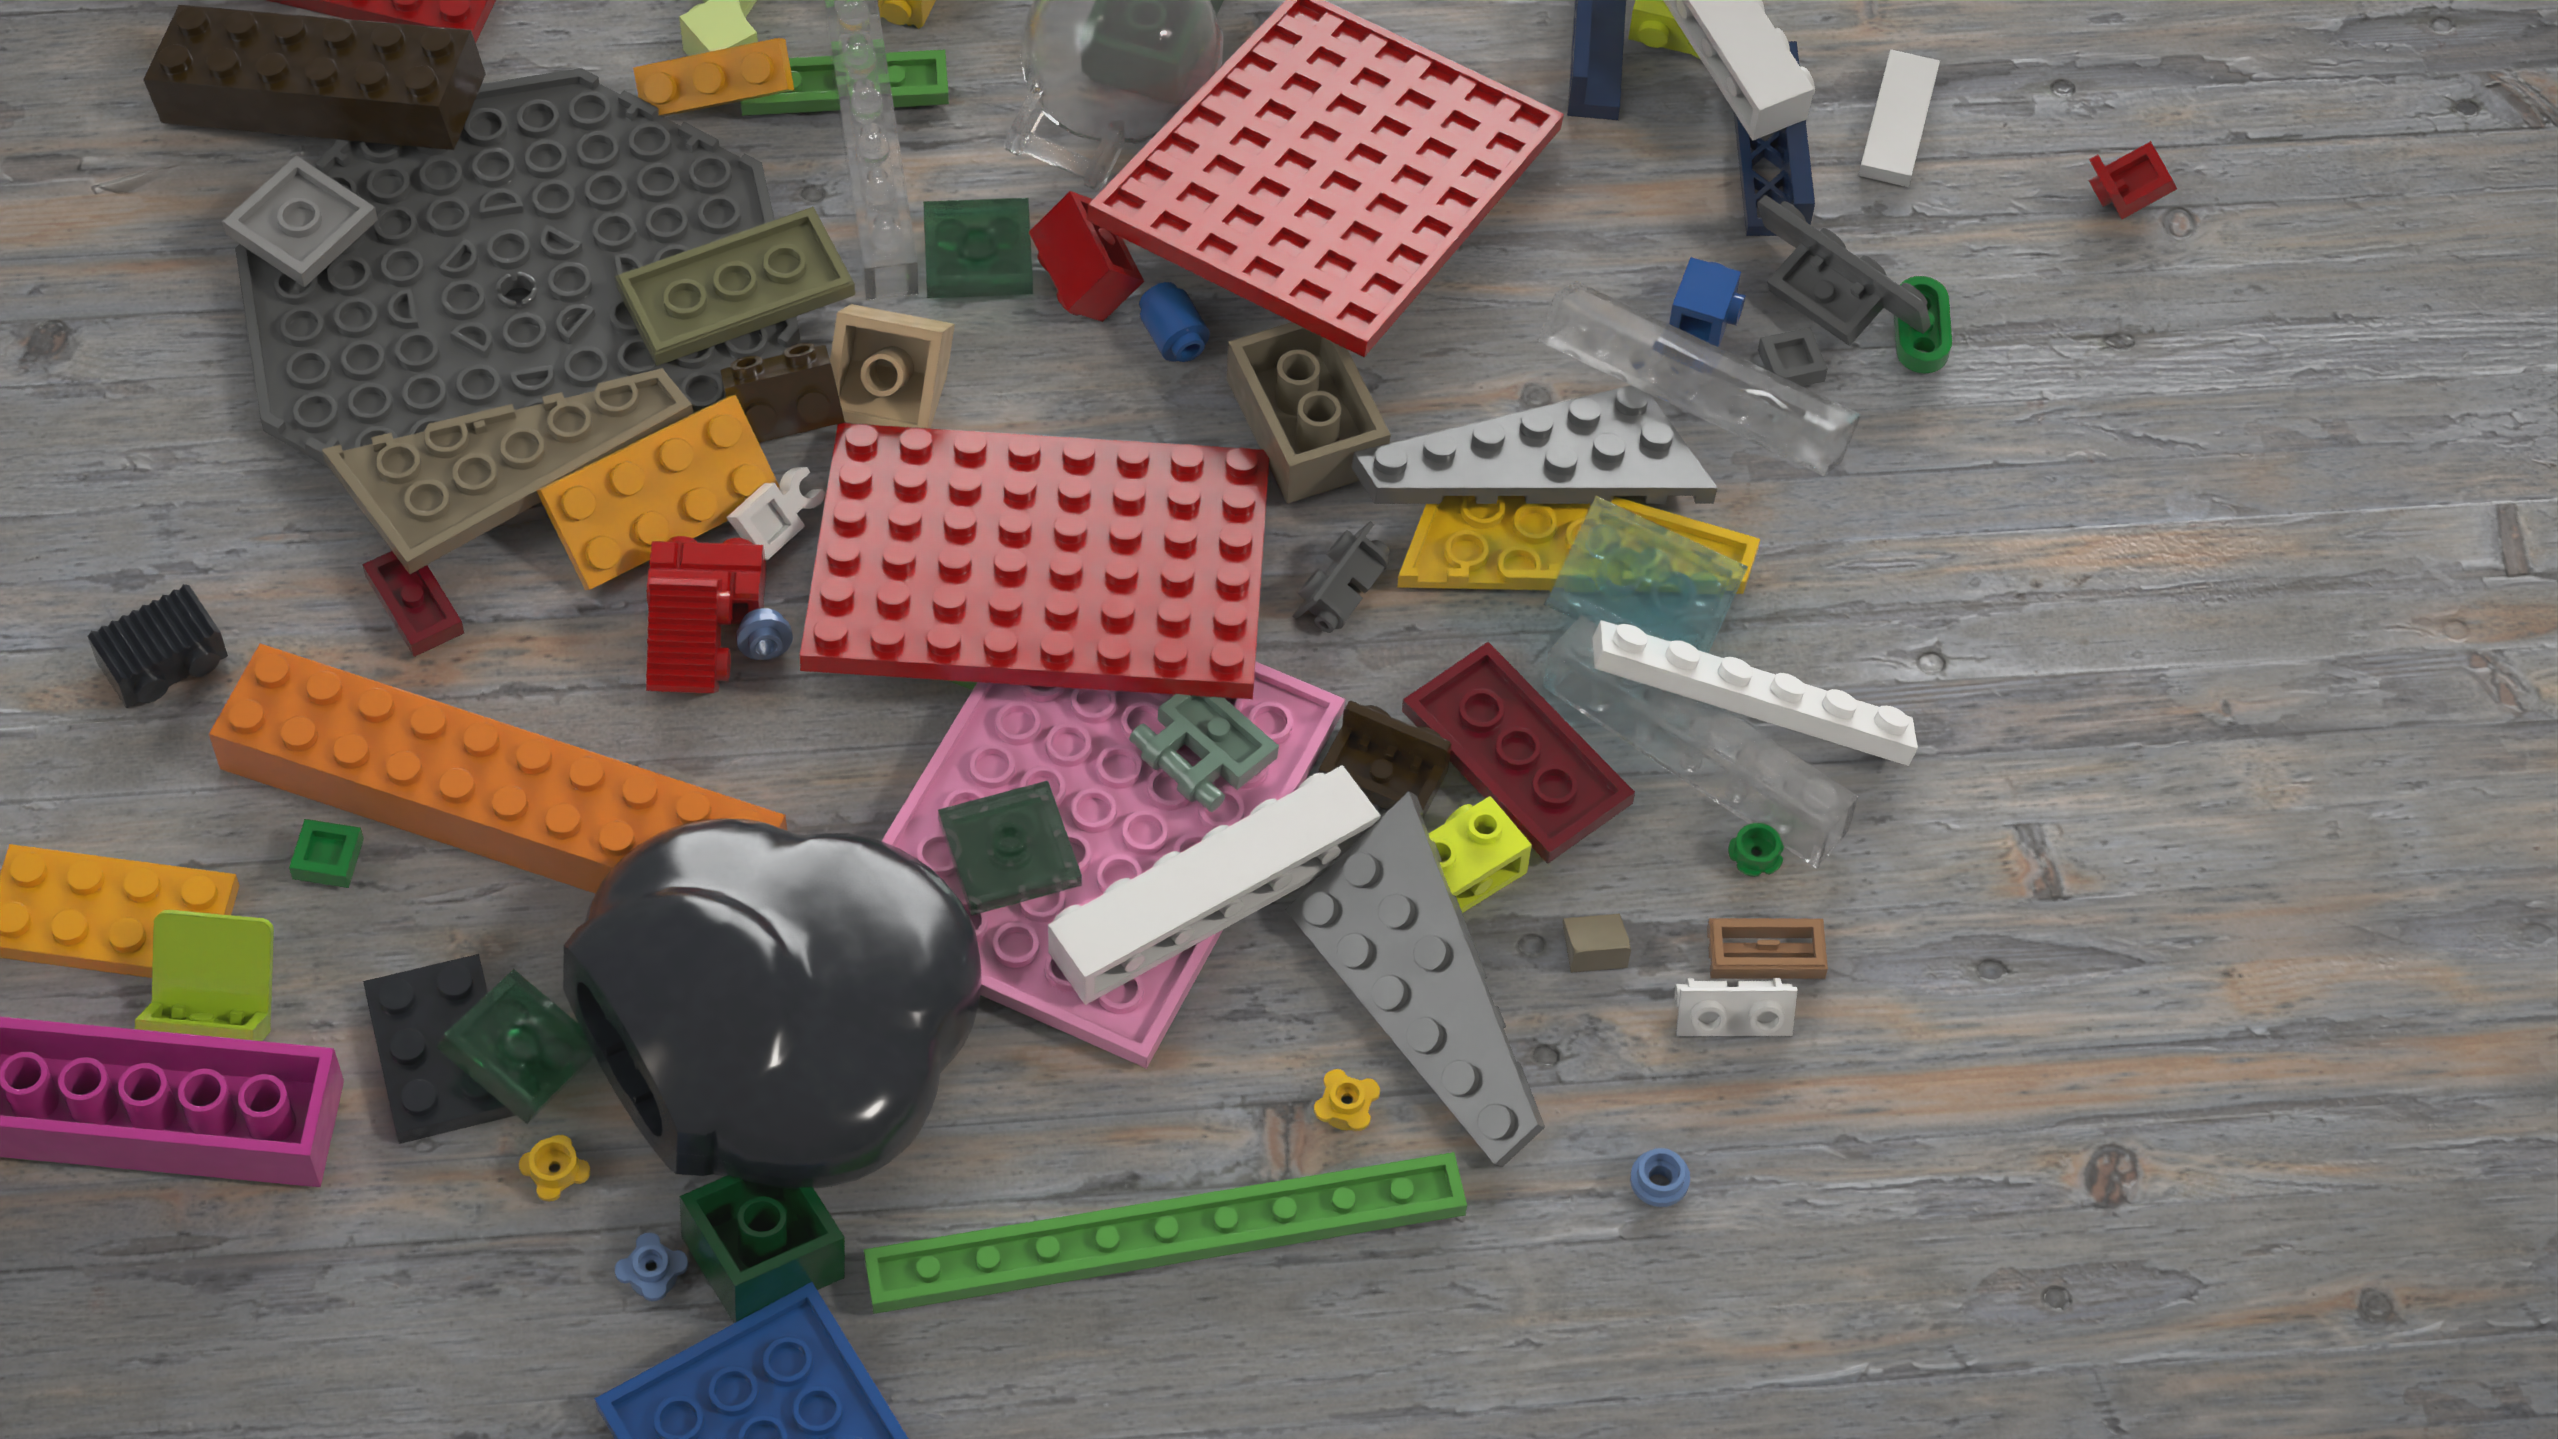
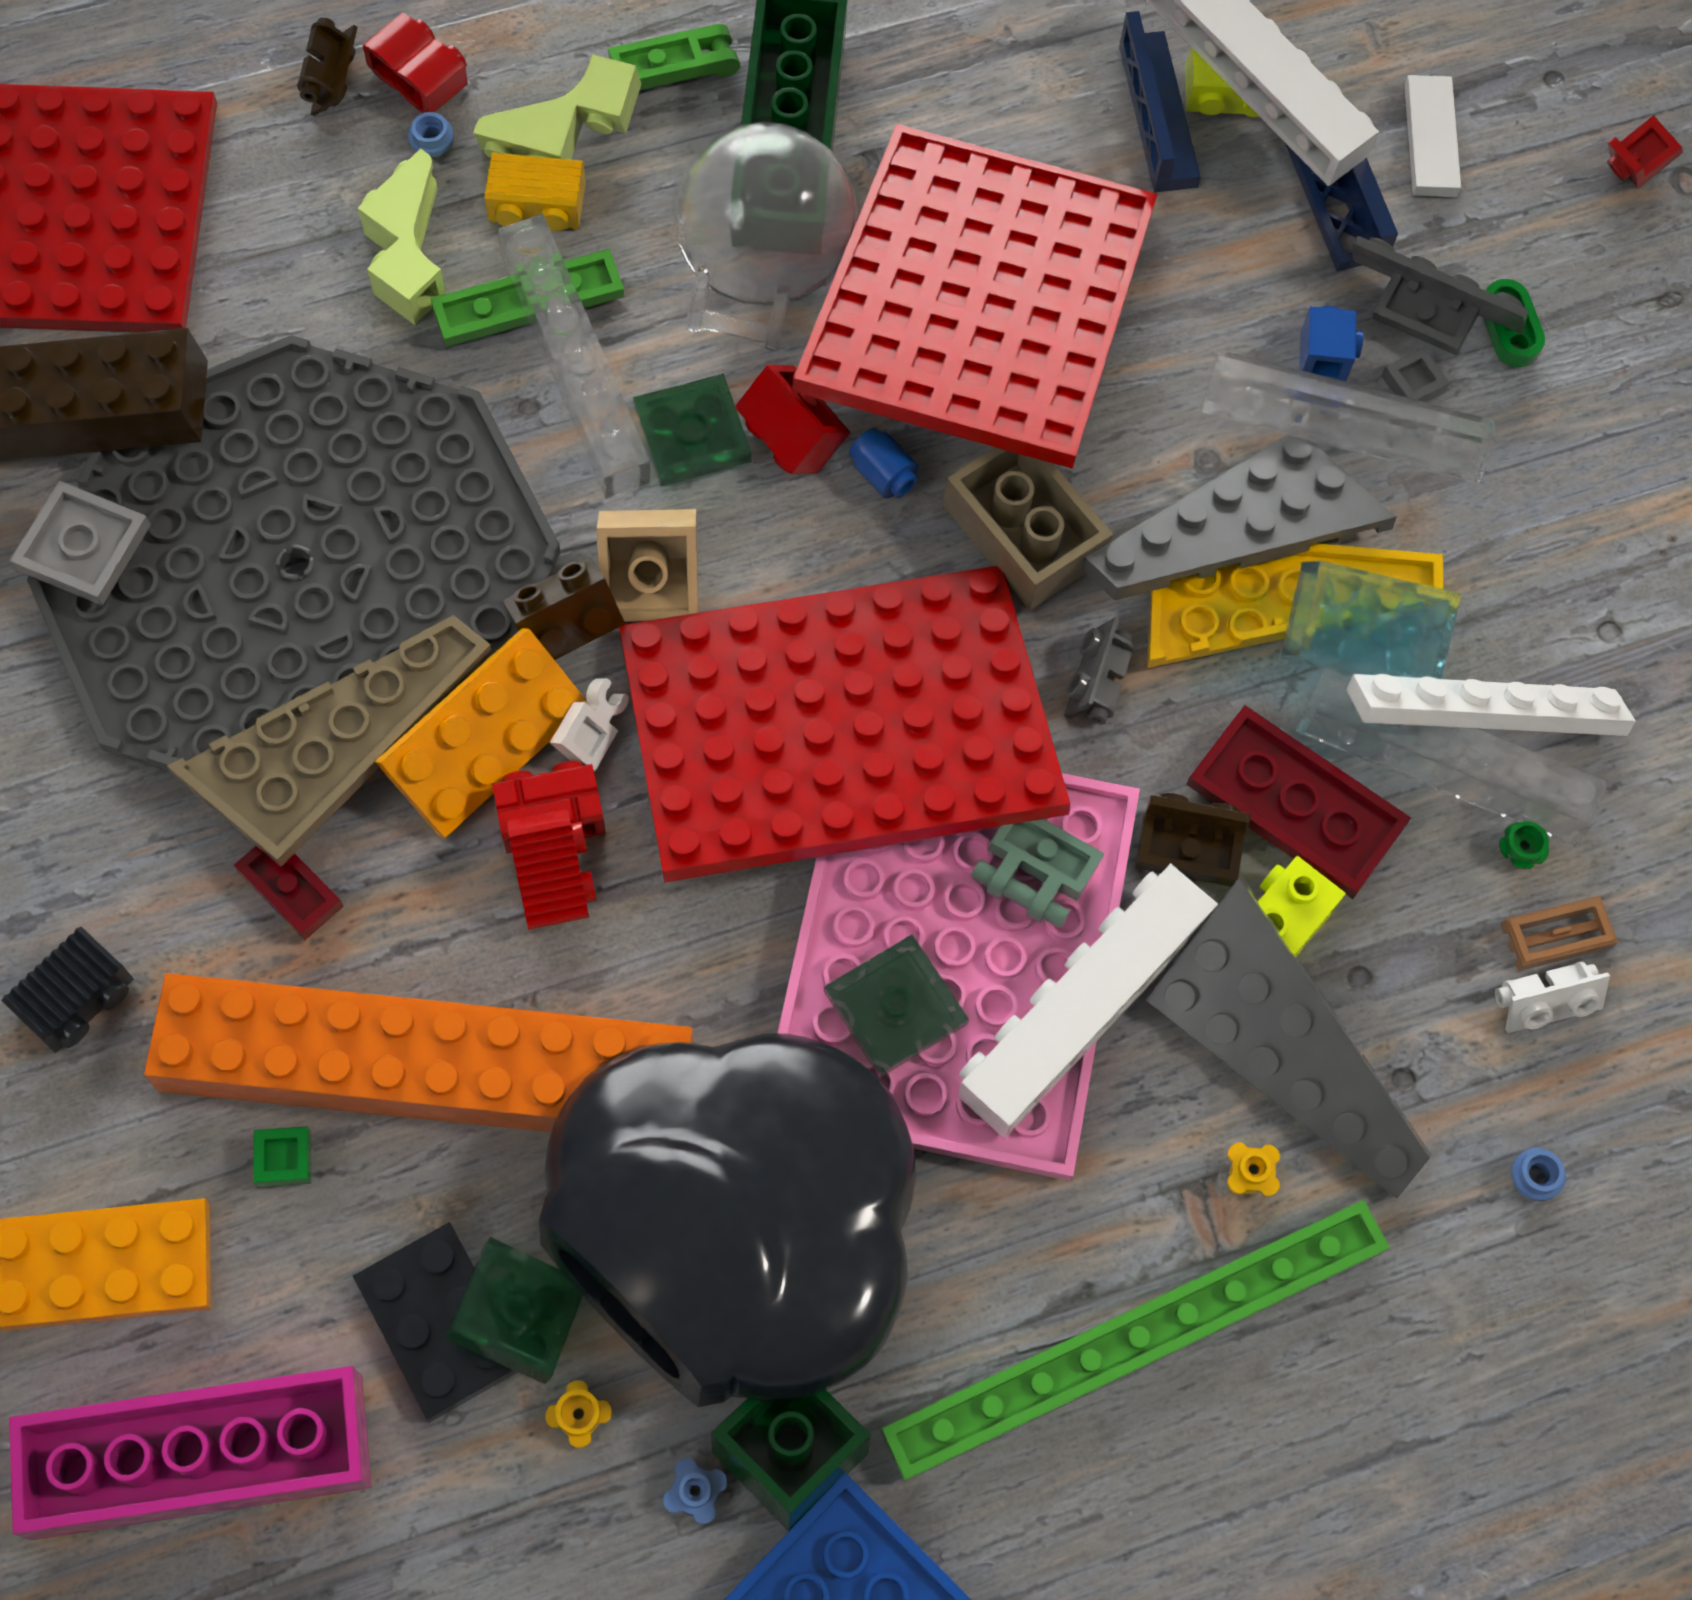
camera: 15 degrees left, 10 degrees up
(210, 976) = (214, 1322): lime bracket -> none
(716, 77) = (416, 320): light orange plate -> none
(735, 286) = (491, 517): olive tile -> none
(764, 634) = (614, 846): medium blue plate -> none
(1596, 942) = (1417, 963): dark tan slope -> none

